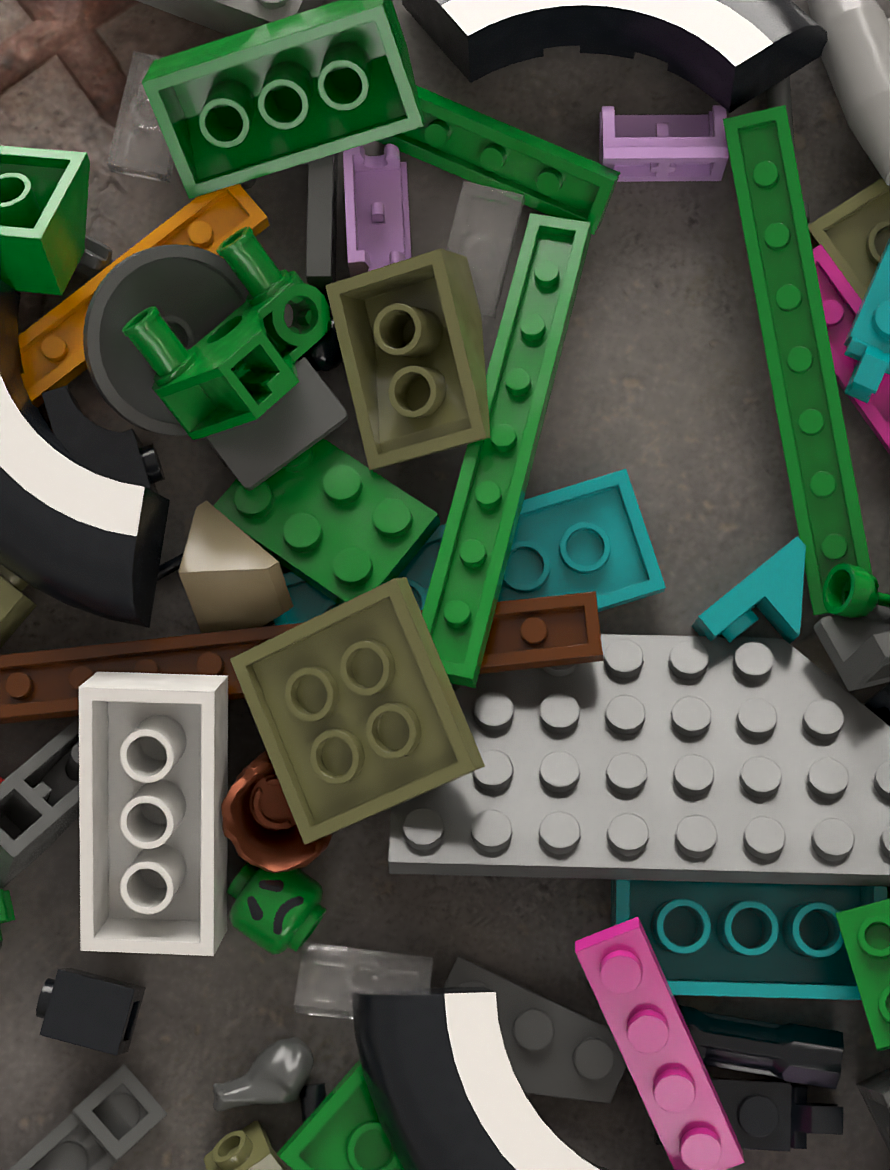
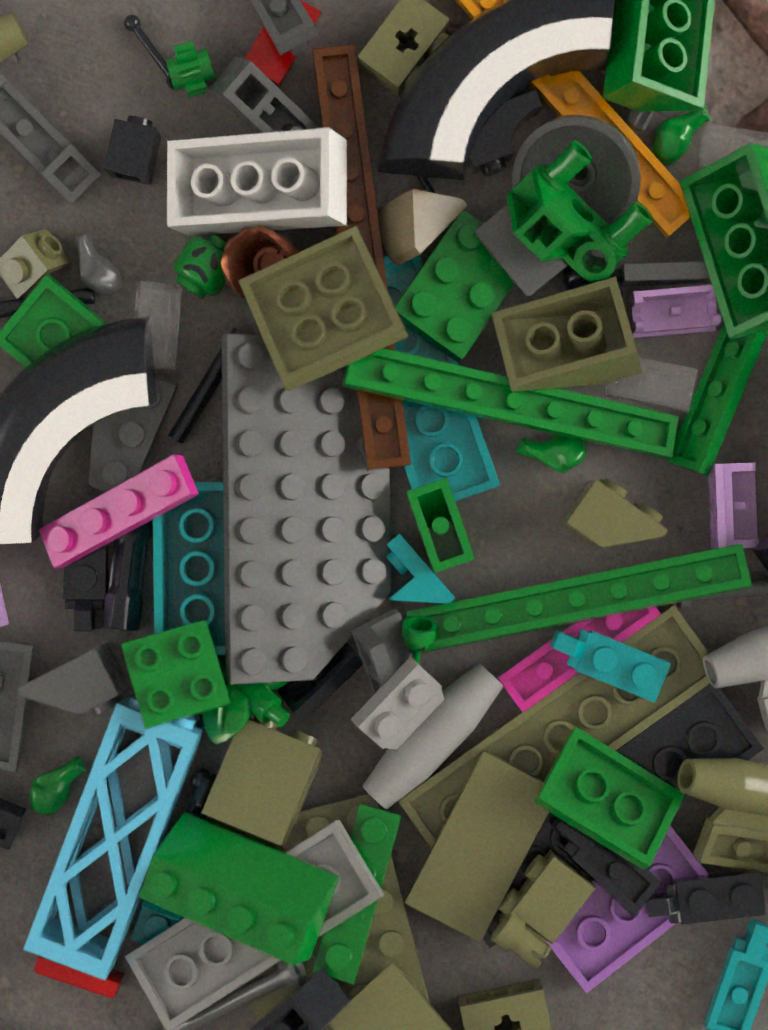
camera: 80 degrees right, 10 degrees up
(122, 207) = (675, 135): none -> green animal
(468, 914) = (199, 398): none -> black bar
(577, 389) = (556, 453): none -> green animal
(682, 311) = (607, 519): none -> olive slope
(690, 554) = (440, 525): none -> green slope

